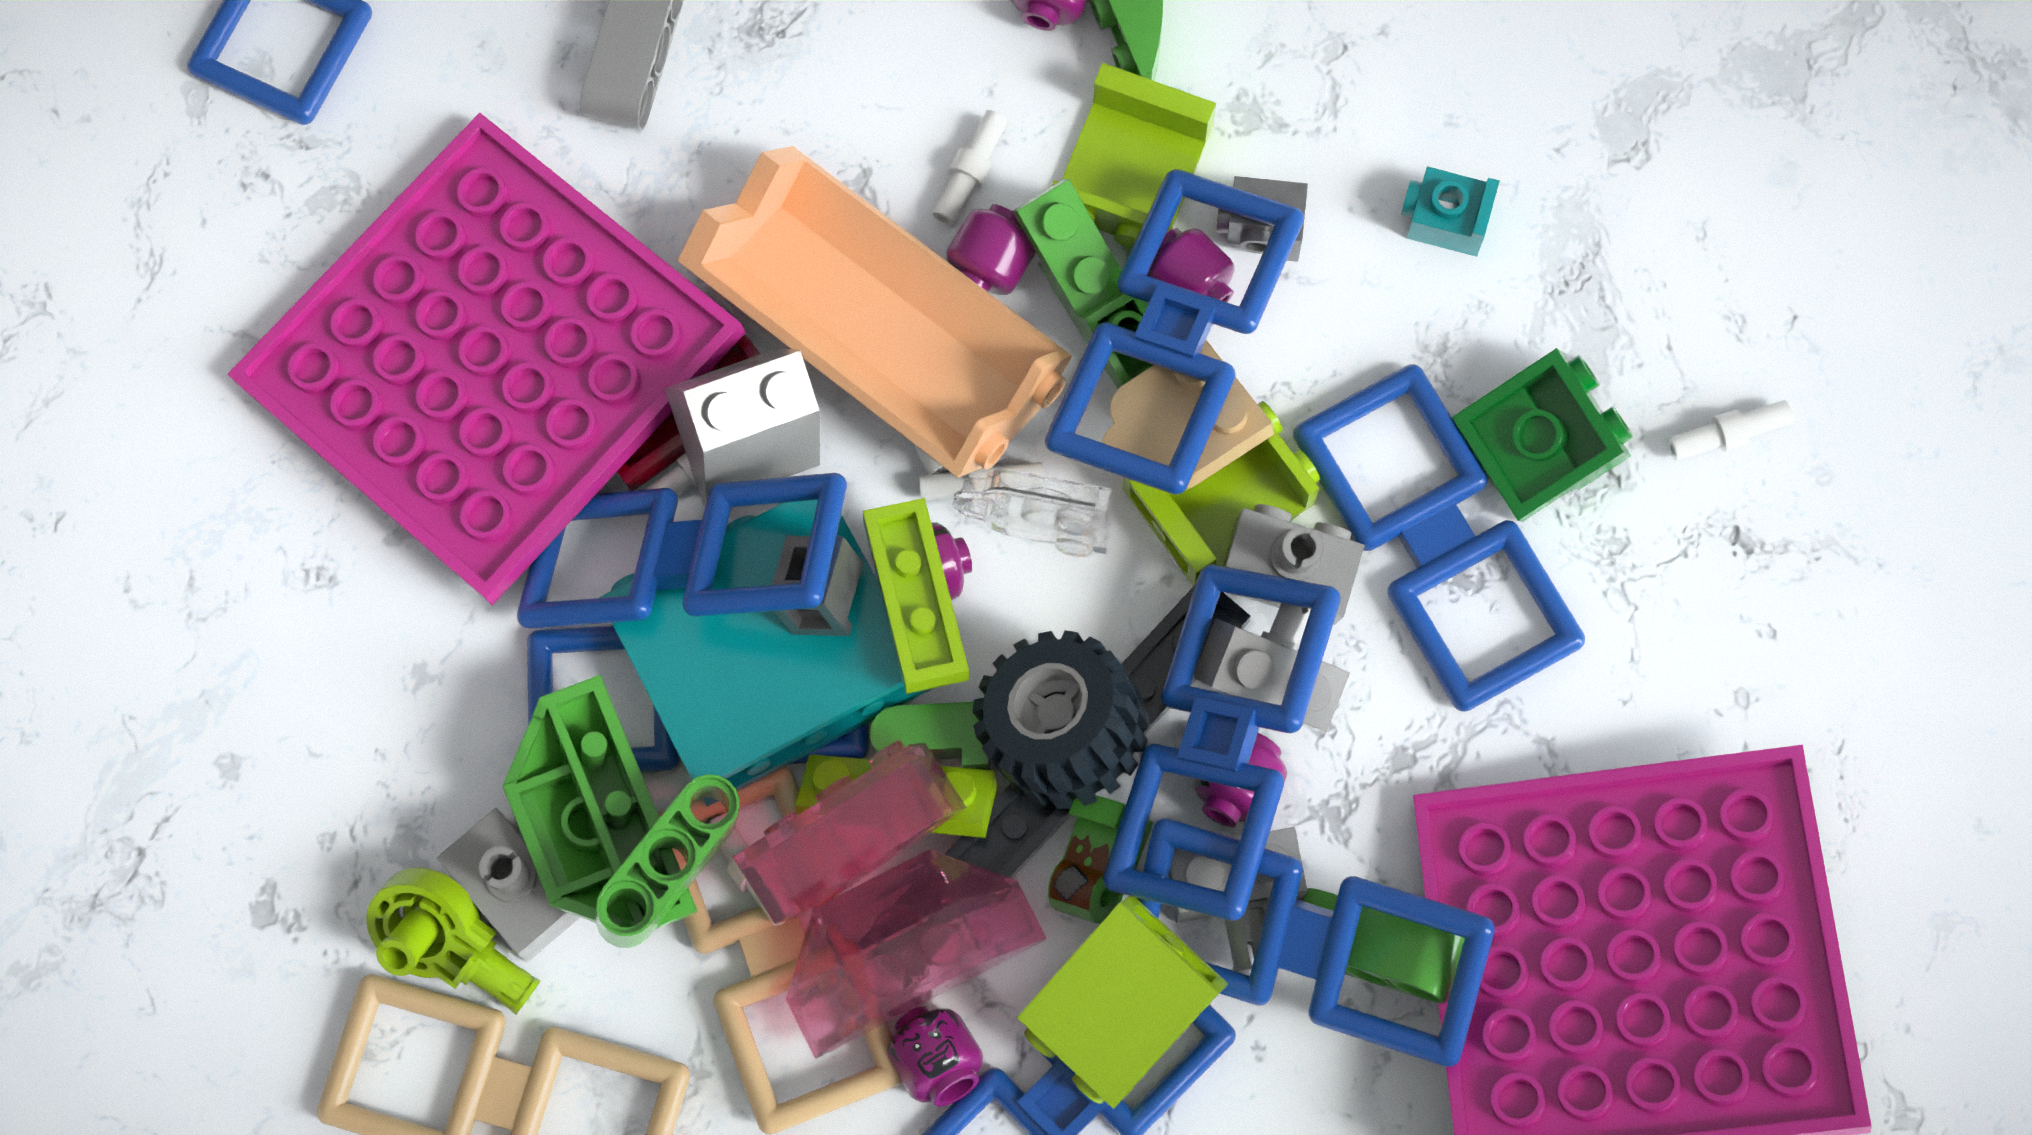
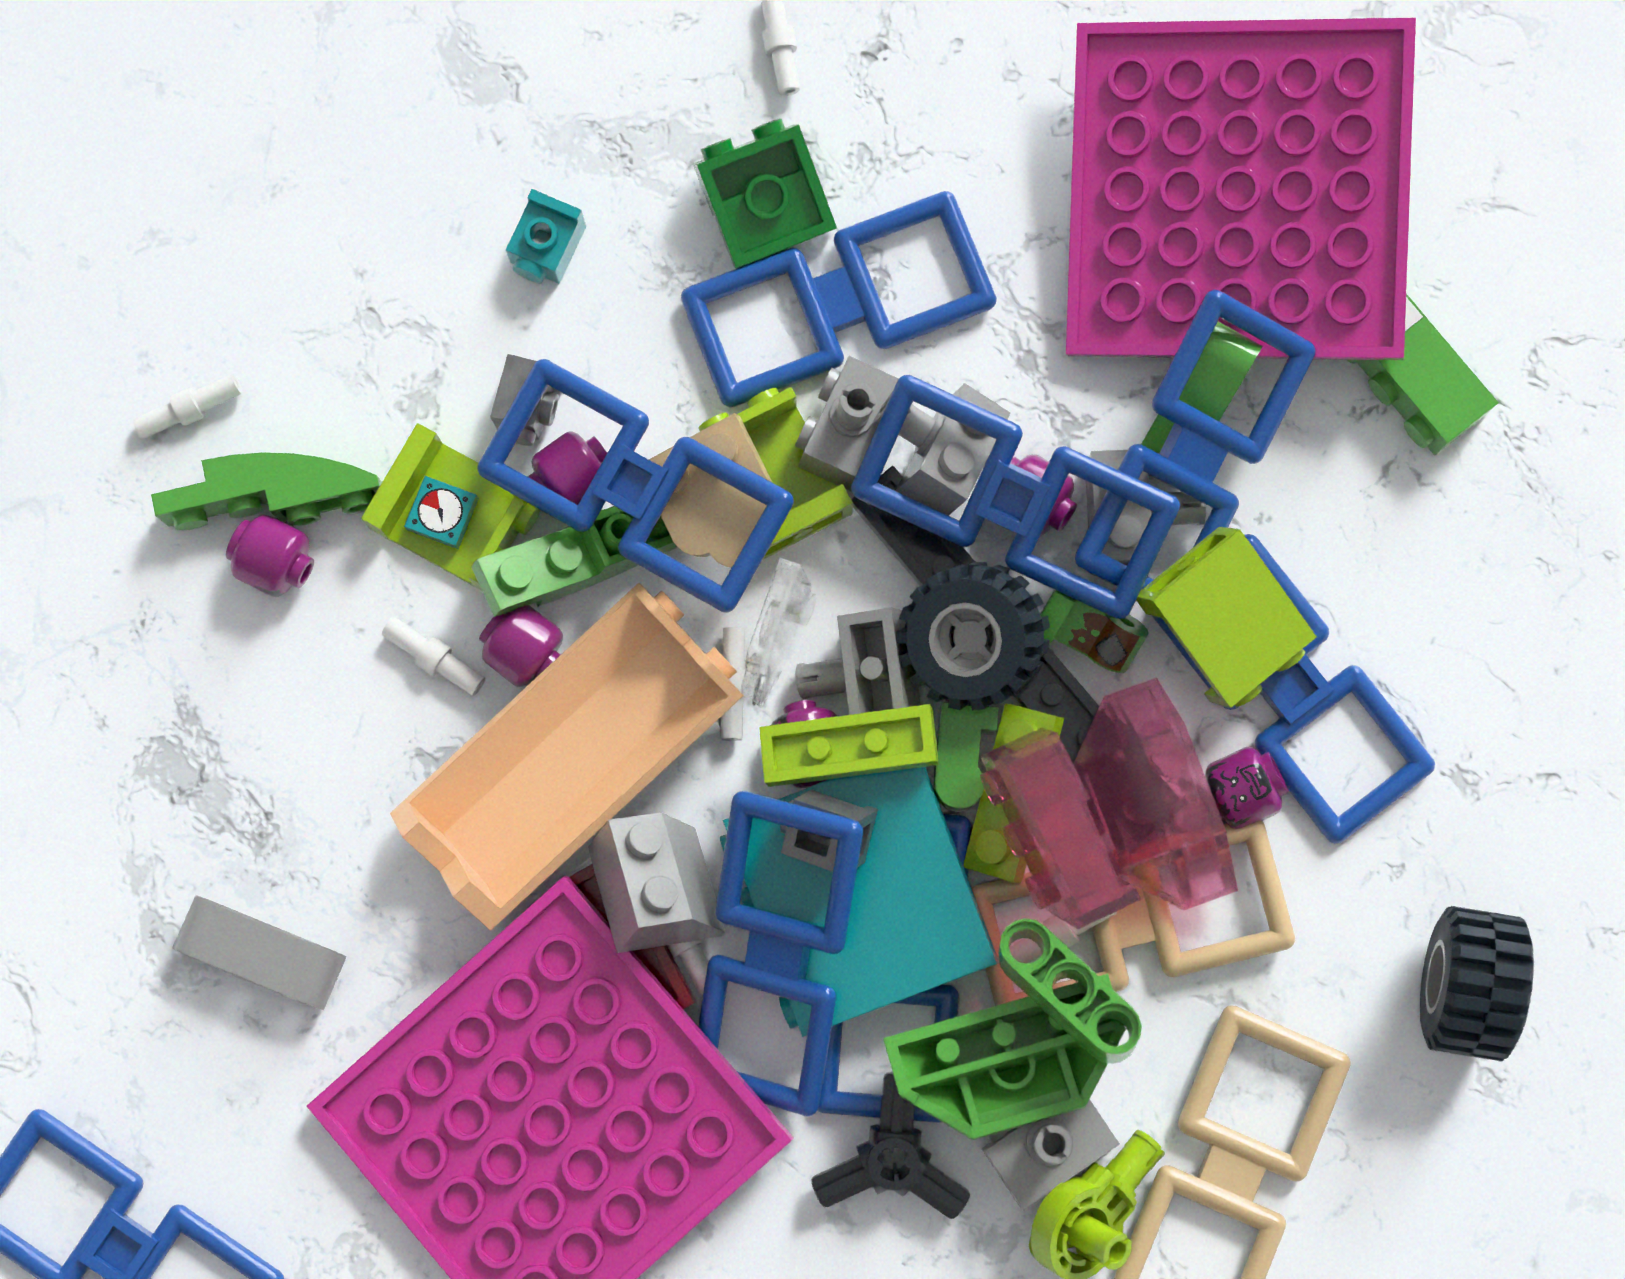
camera: 85 degrees left, 5 degrees up
(466, 697) = (868, 1169): none -> black bush
(1009, 611) = (868, 667): none -> light grey brick
(1126, 149) = (441, 512): none -> tile

